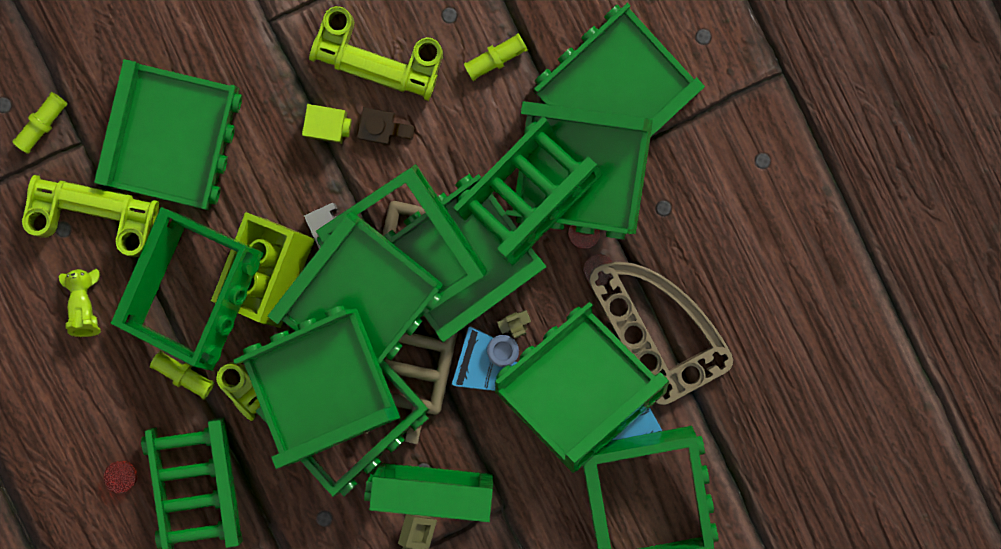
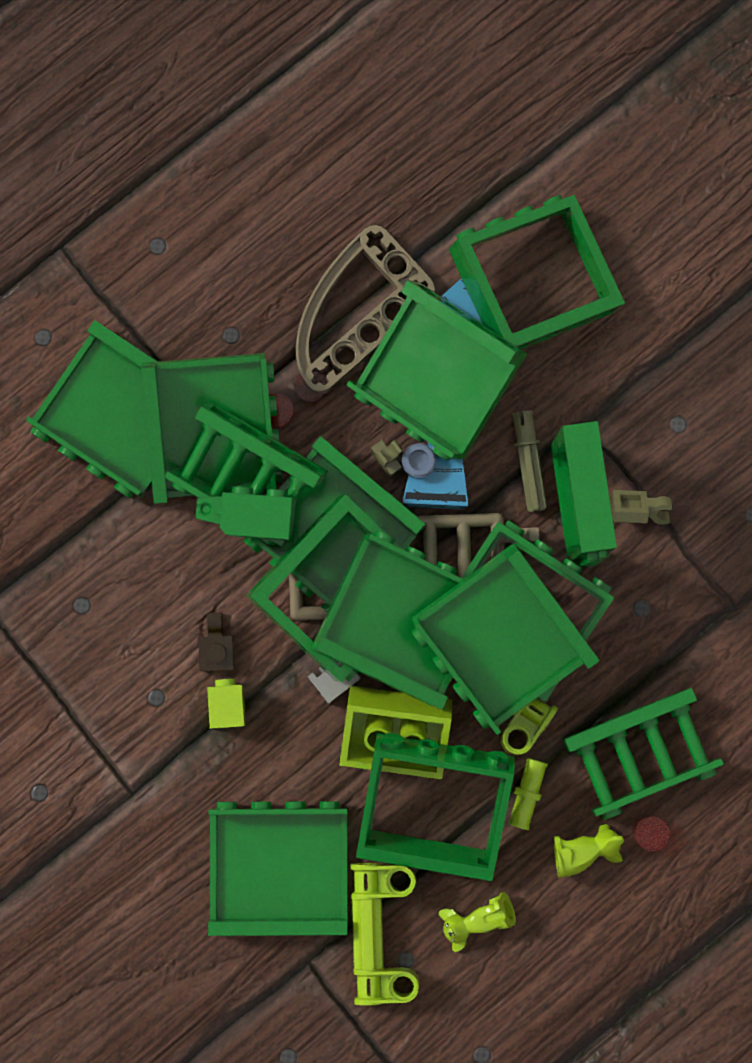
camera: 110 degrees left, 5 degrees down
(39, 122) = (297, 1011): lime pin -> none
(116, 406) = (579, 854): none -> lime animal
(371, 65) = (153, 671): lime piece -> none
(481, 451) = (529, 461): none -> olive axle
(486, 184) = (249, 514): none -> green hinge
(495, 57) = (114, 545): lime pin -> none

